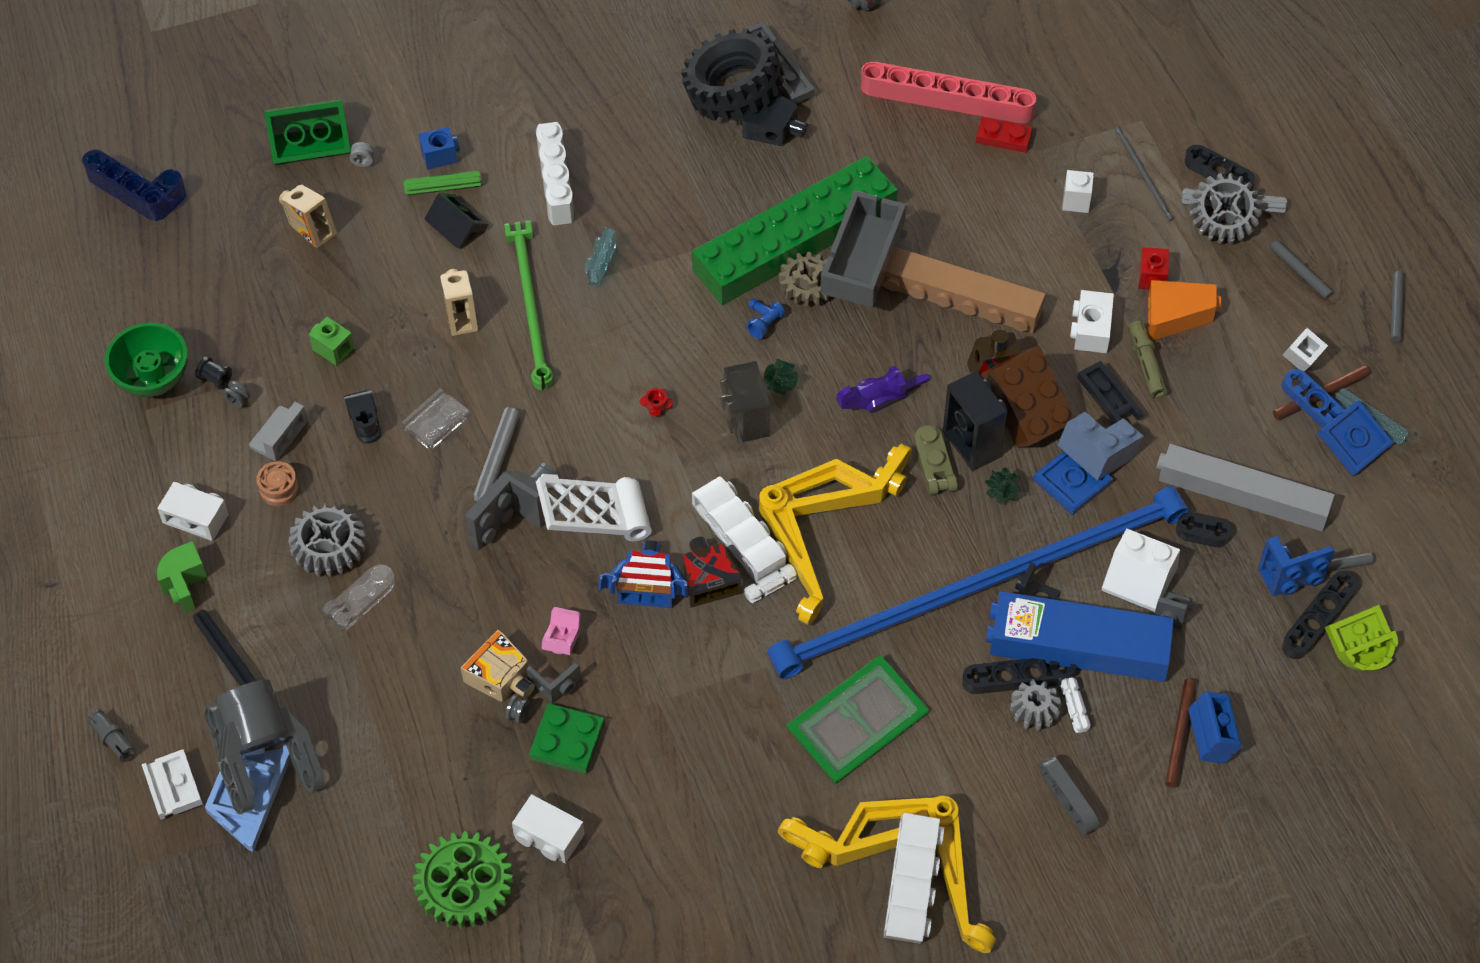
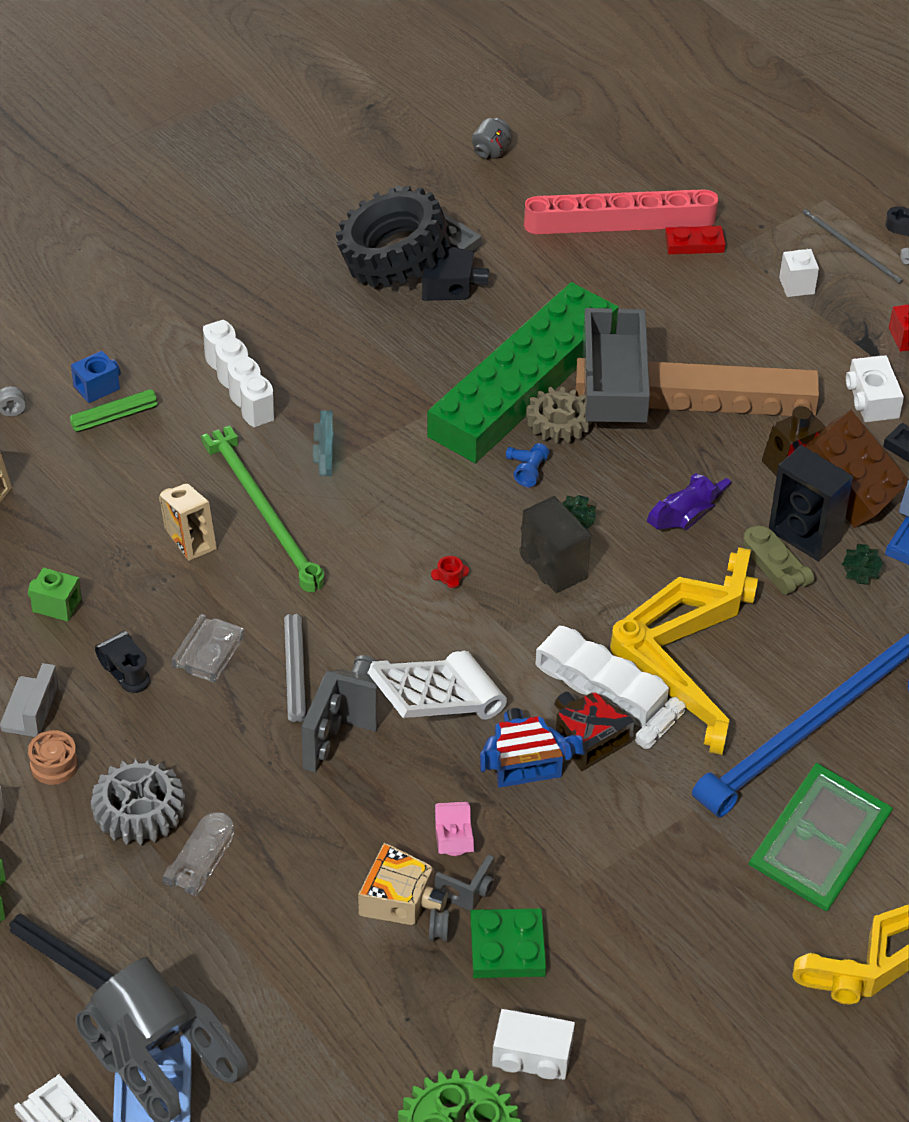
camera: 20 degrees left, 10 degrees down
(454, 219) = (142, 443): black panel -> none

